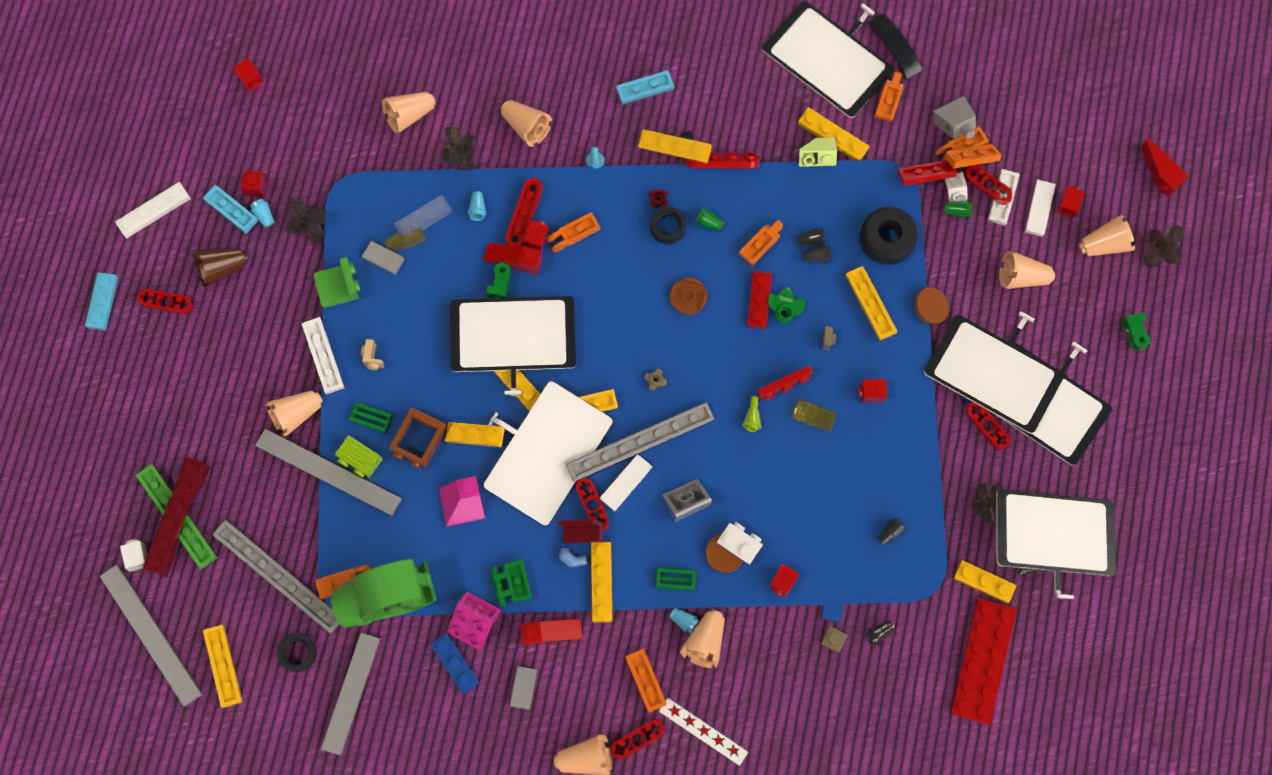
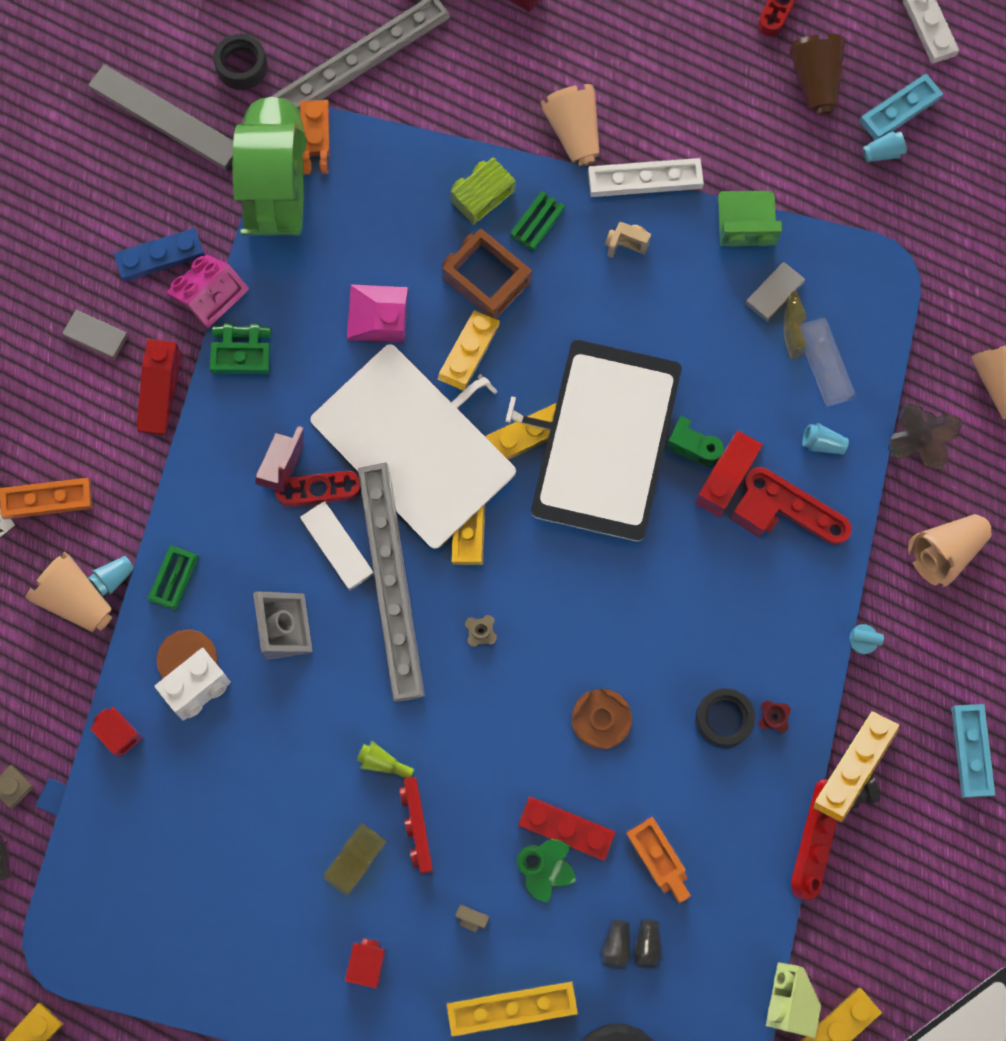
camera: 105 degrees right, 0 degrees up
(253, 184) = (932, 143): red brick -> none
(306, 220) = (858, 199): clear smoke plant -> none
(328, 472) = (472, 150): light grey tile -> none
(570, 560) = (247, 437): medium blue arm -> none
(574, 232) = (749, 574): orange hinge -> none
(601, 582) = (201, 472): yellow plate -> none
(709, 220) = (718, 786): green cone -> none
(891, 531) = (137, 922): clear smoke cone -> none

